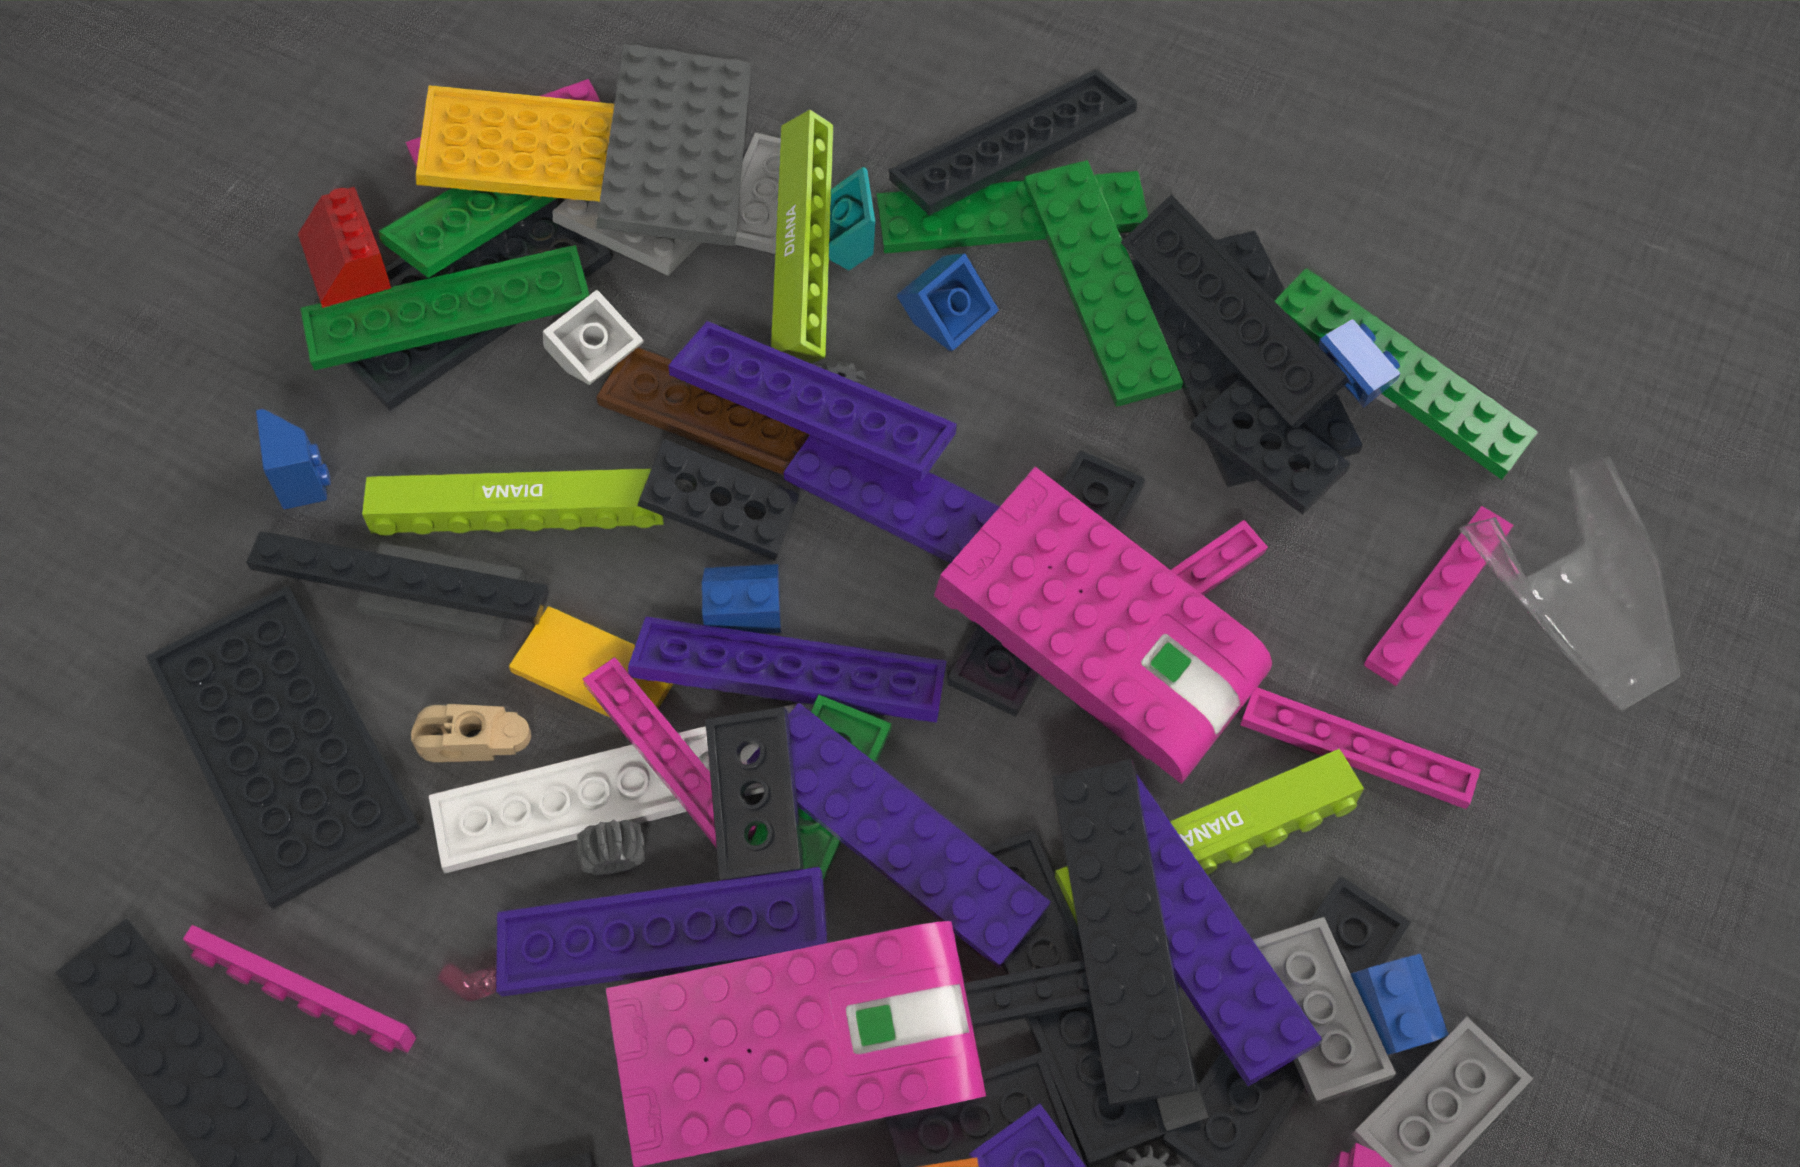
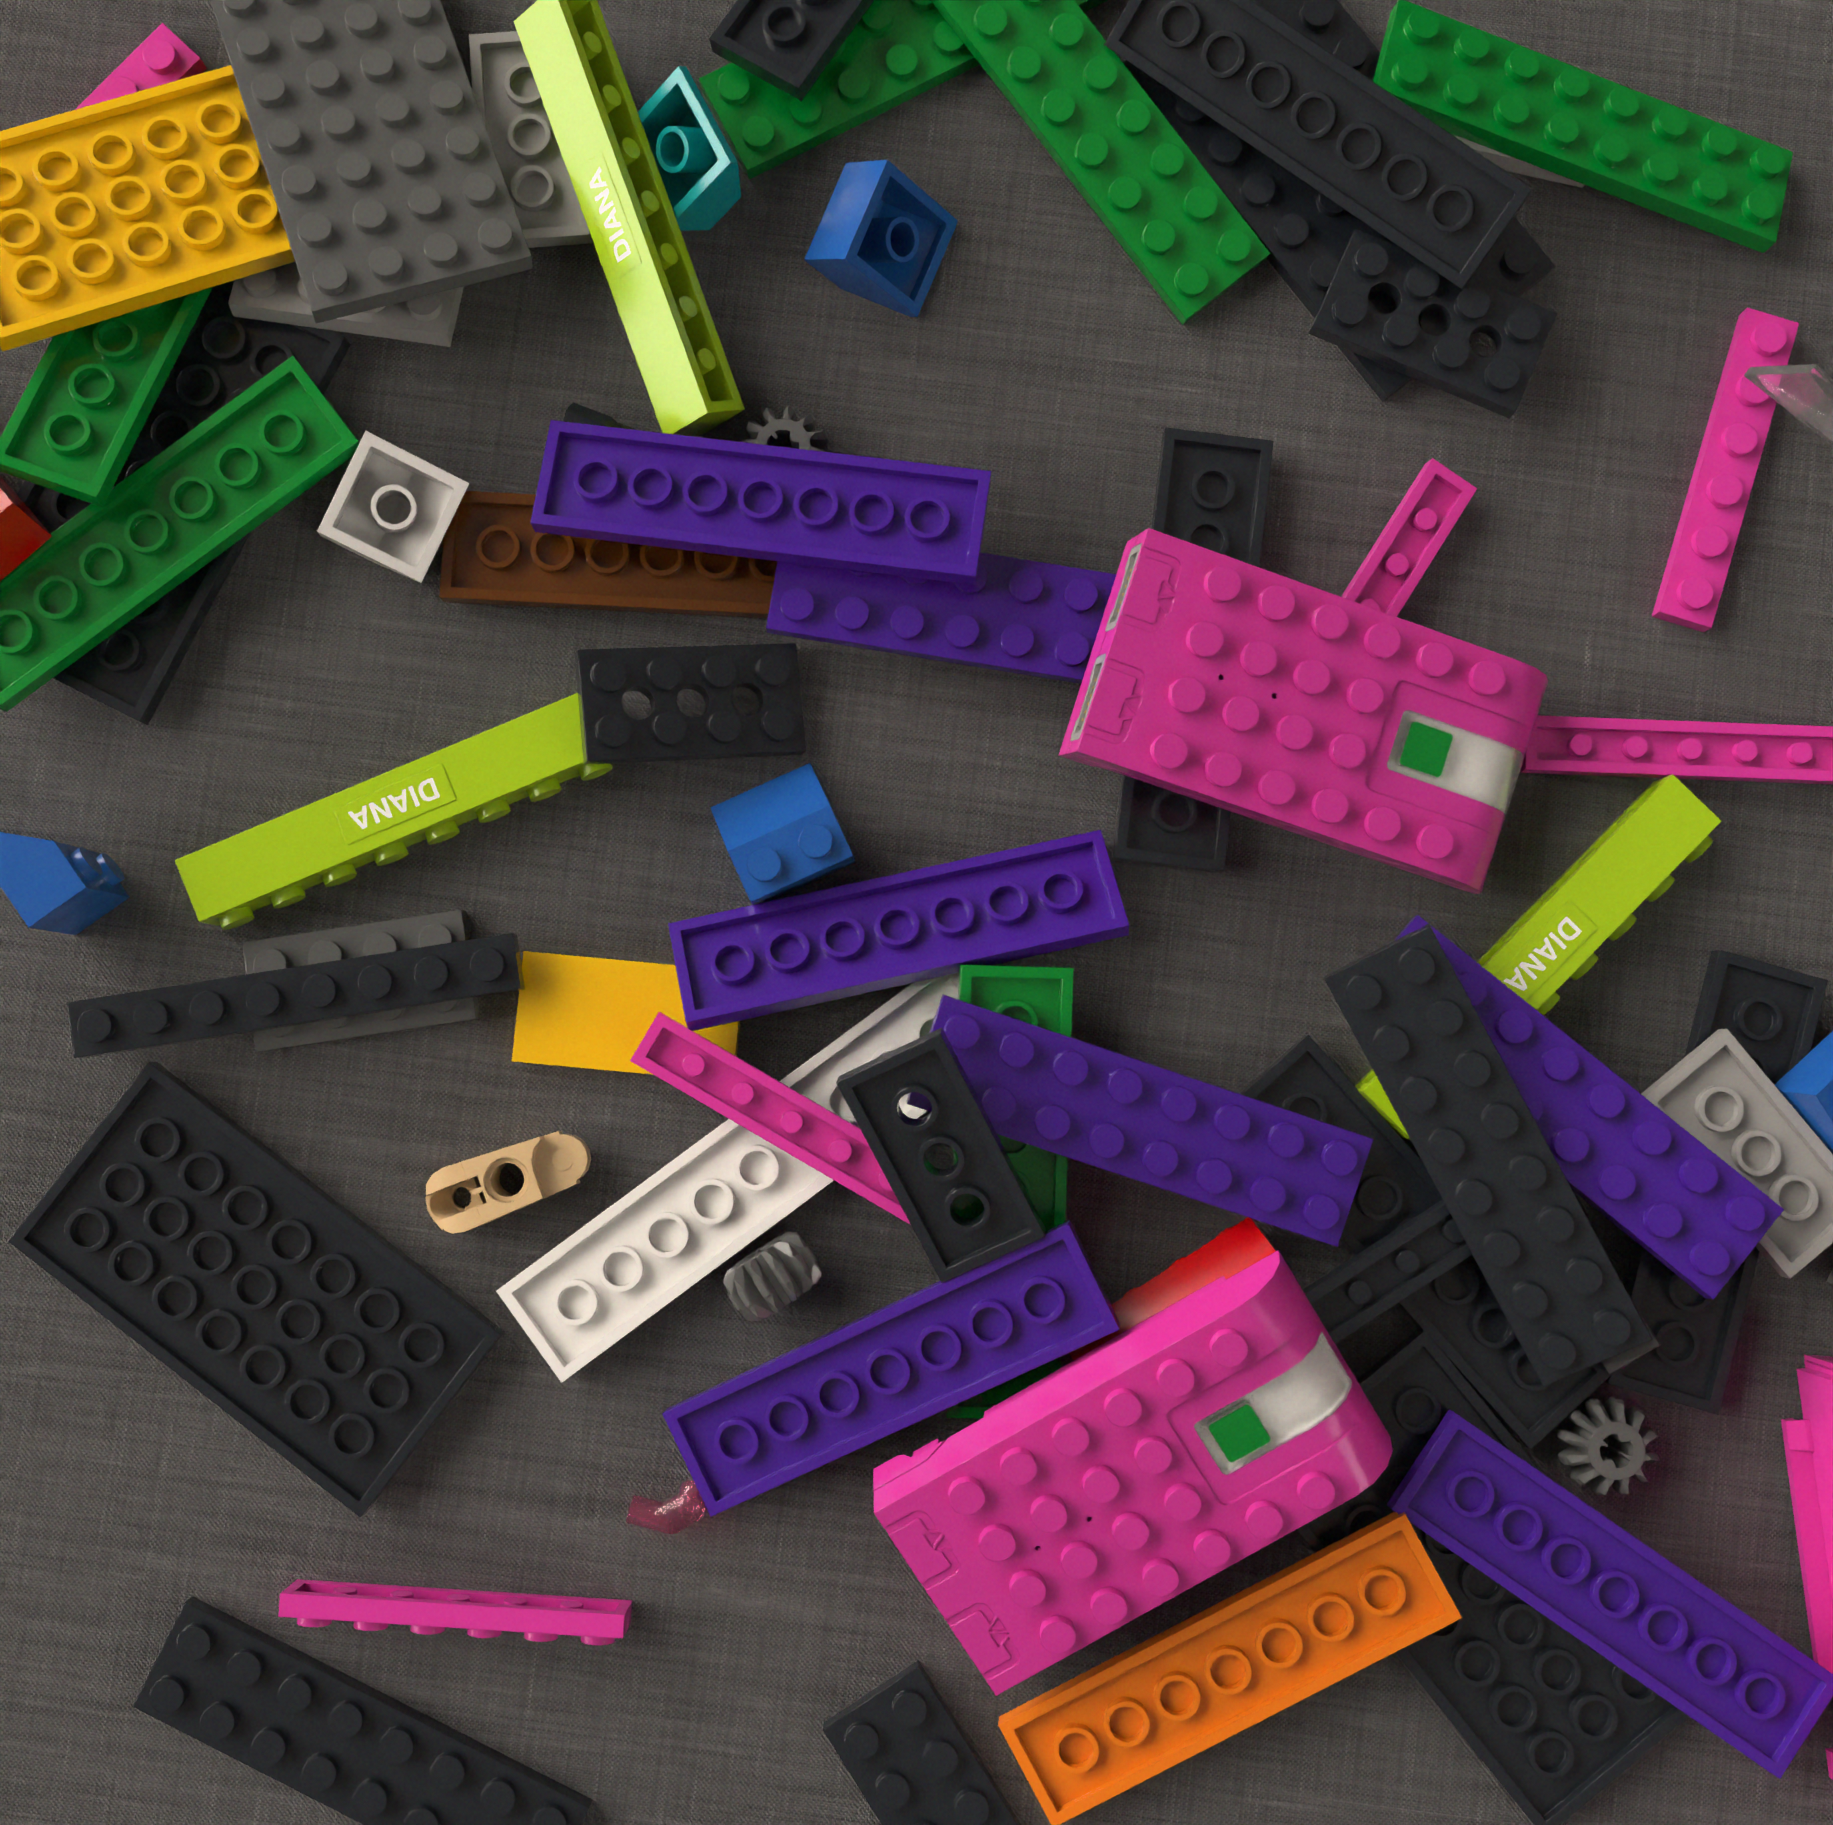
camera: 20 degrees left, 25 degrees up
(1361, 360) = (1540, 150): slope -> none

